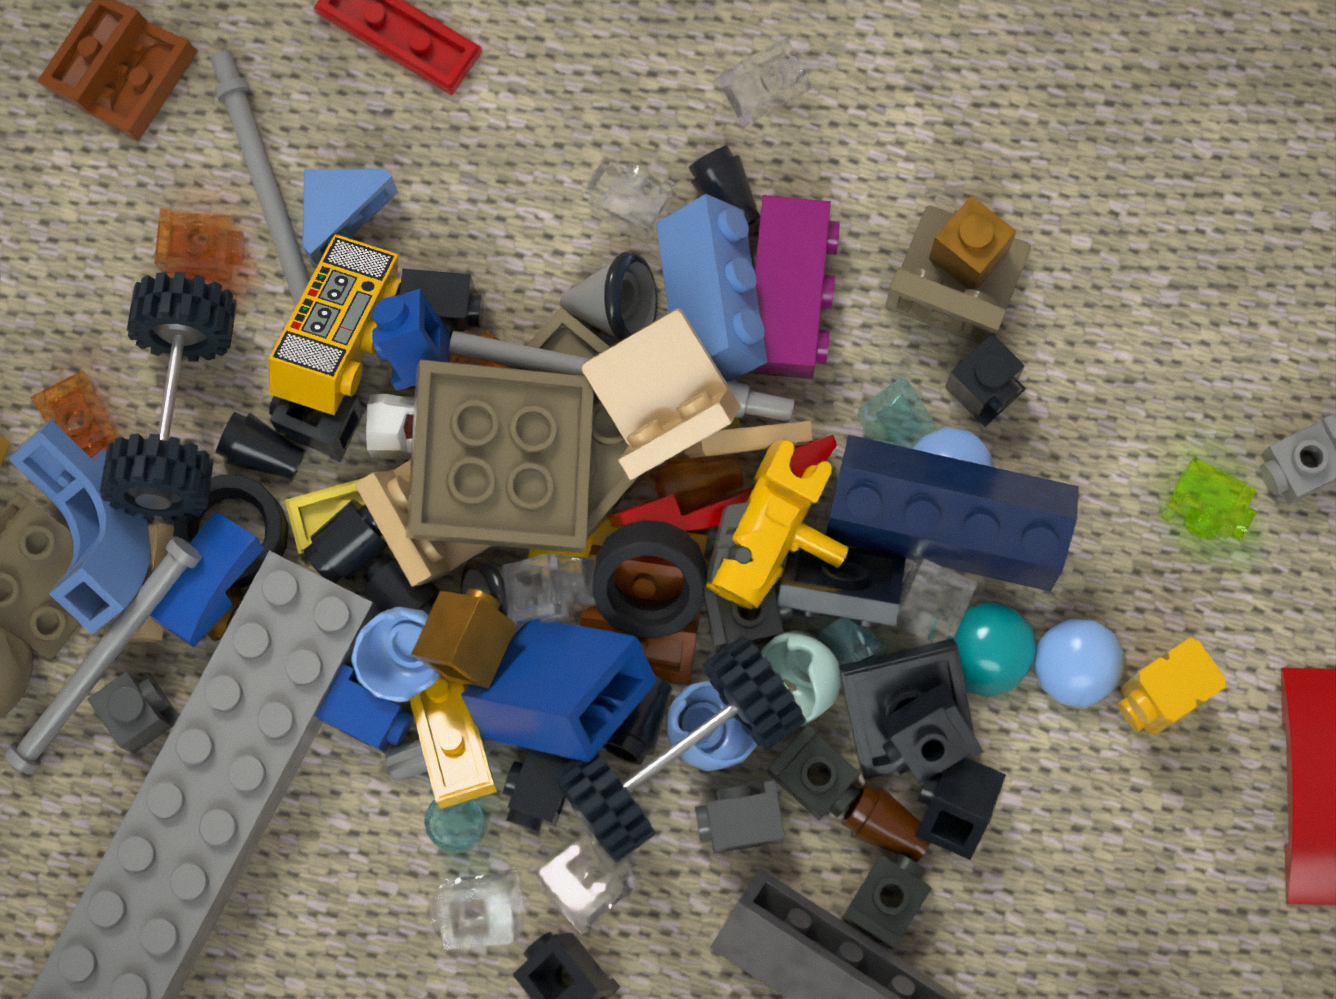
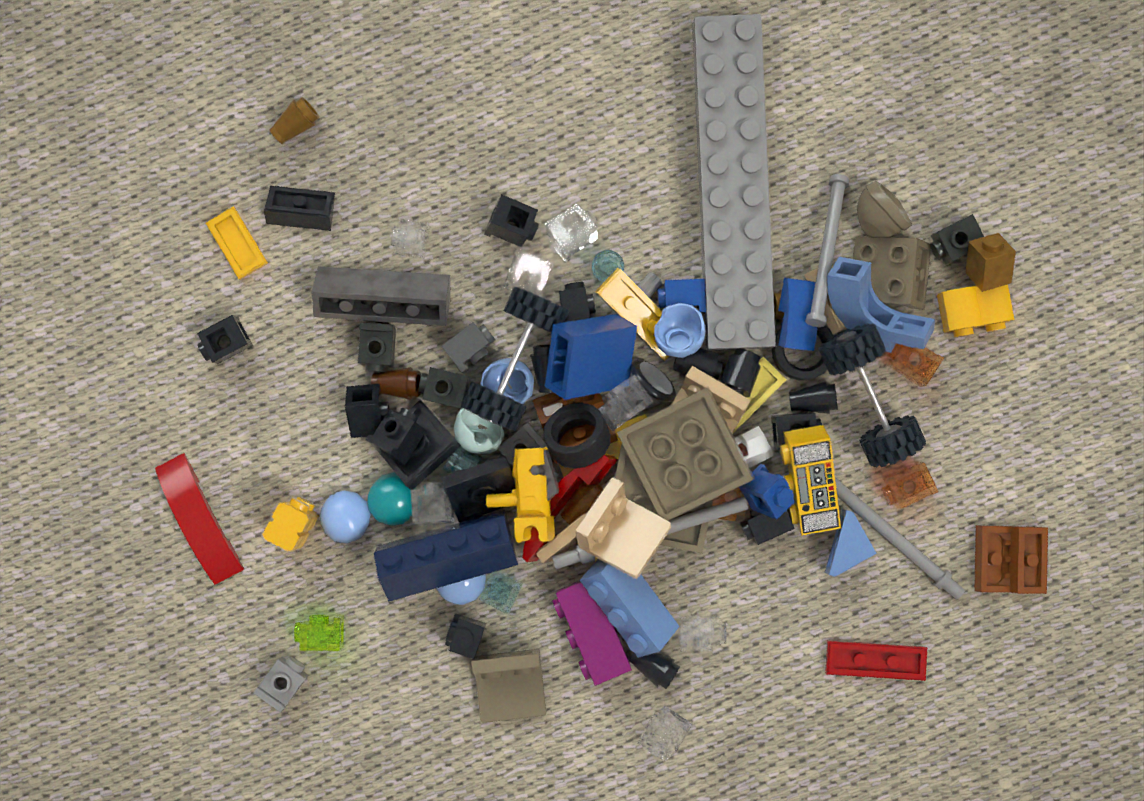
camera: 150 degrees right, 10 degrees up
(134, 710) = (797, 233): dark grey brick -> none
(465, 637) = (650, 354): pearl gold brick -> none
(599, 297) = (676, 574): light grey hat -> none
(972, 243) = (509, 702): pearl gold brick -> none

